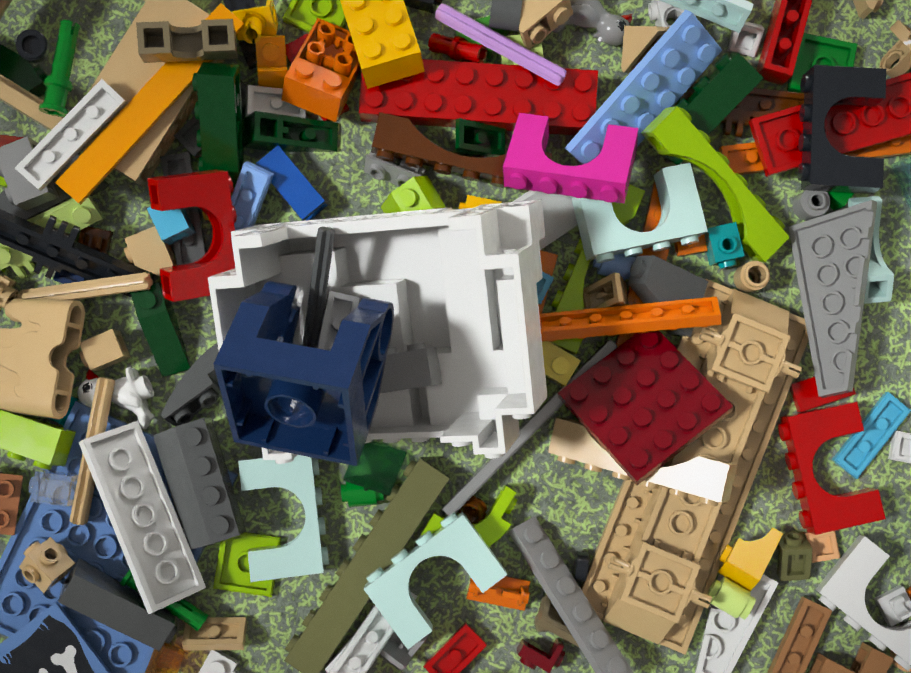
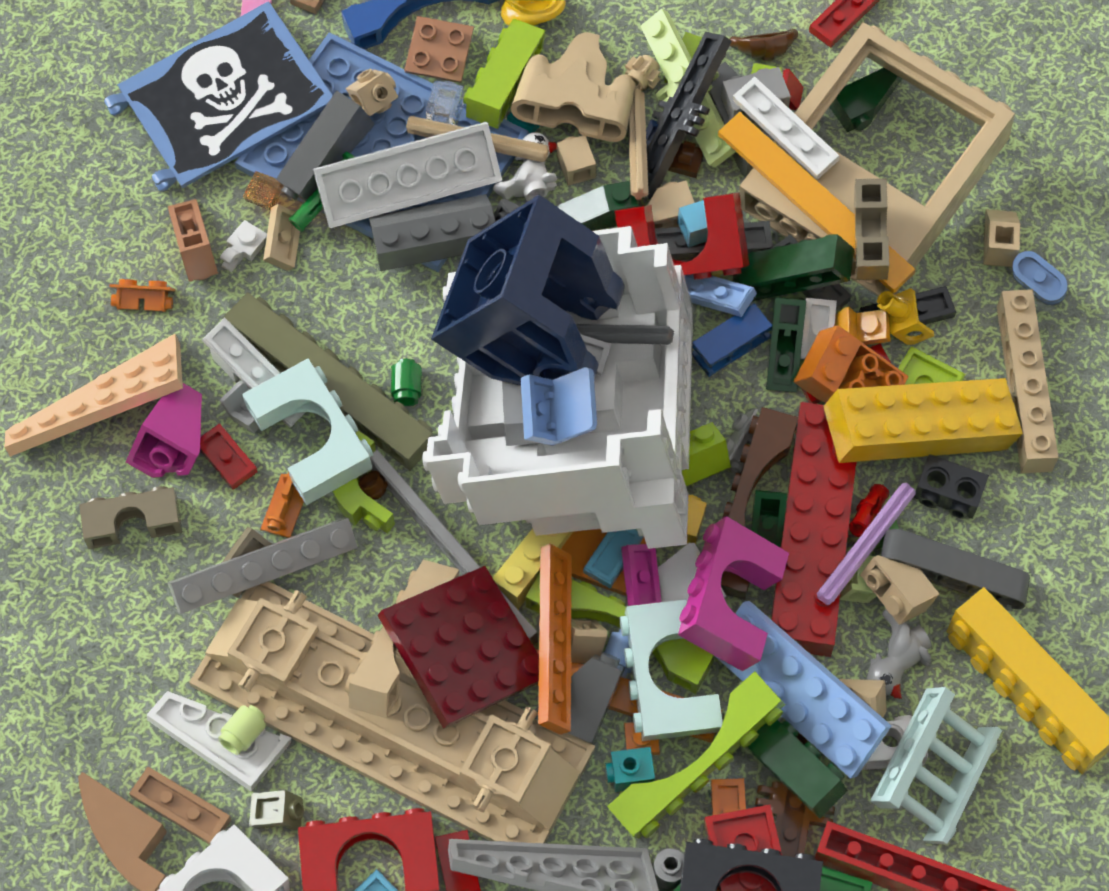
camera: 100 degrees right, 20 degrees down
(32, 46) = (876, 100): black tile -> none
(59, 83) = (837, 119): green pin -> none
(233, 564) = (347, 274): lime tile -> none
(303, 553) = (354, 325): light aqua arch -> none
(376, 468) = (428, 393): clear green piece -> none
(417, 330) = (558, 407): none -> medium blue bracket
(533, 656) = (210, 533): dark red bracket -> none
(557, 247) = (641, 574): none -> dark pink plate
(580, 566) = (300, 583): black tile -> none
(747, 40) = (873, 822): white slope -> none
(747, 560) = (280, 755): yellow arch -> none
(759, 273) = (594, 784): tan brick -> none
(823, 545) = (283, 846): light nougat tile -> none

